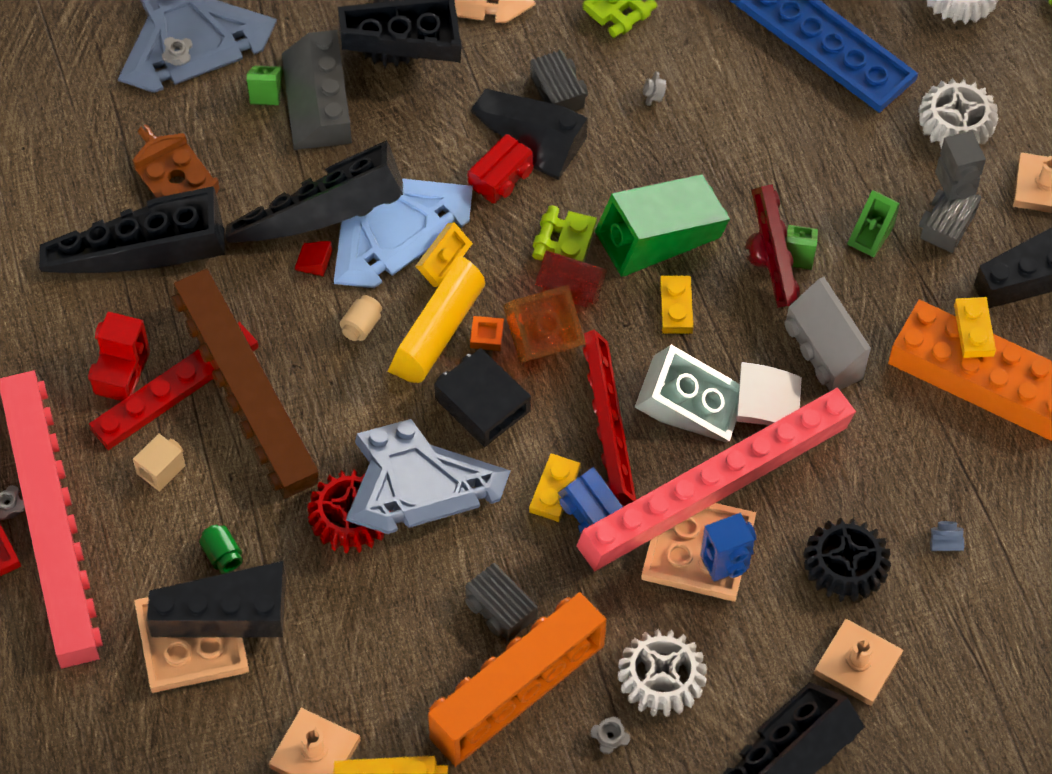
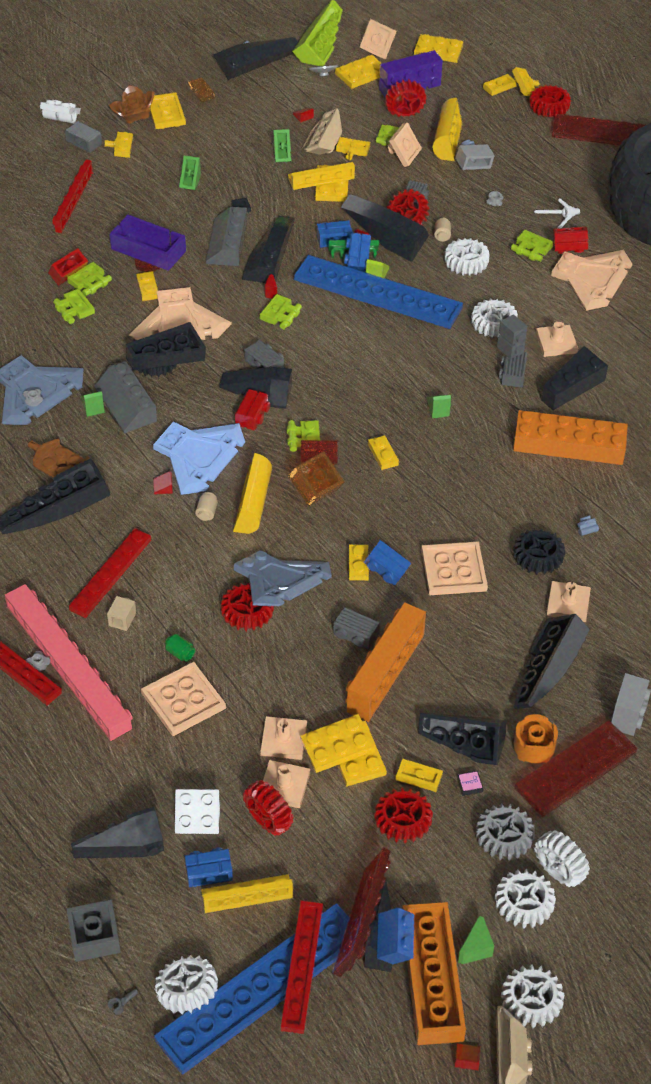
camera: 20 degrees left, 10 degrees down
(121, 358) = (72, 563): red brick -> none
(222, 605) = (197, 673): black wedge -> none
(245, 383) = (156, 556): reddish brown brick -> none
(346, 191) = (167, 443): black wedge -> none
(443, 254) = (239, 461): yellow plate -> none
(482, 397) = (296, 527): black brick -> none
(487, 333) = (283, 495): orange plate -> none
(609, 416) = (369, 513): red plate -> none
(614, 726) = (449, 673): light grey plate -> none
(649, 653) = (464, 637): white gear -> none
(654, 89) = (320, 347): light grey plate -> none
(659, 222) = (355, 412): slope -> none
(689, 395) = (413, 493): light aqua slope -> none
(714, 479) = (449, 529): coral brick -> none
(728, 547) = (474, 558): blue brick -> none
(766, 394) = (457, 484): white slope -> none
(769, 247) = (426, 406): dark red plate -> none
(828, 336) = (477, 442): light grey slope -> none
(874, 223) = (475, 381): bright green slope -> none
(974, 327) = (556, 414): yellow plate -> none

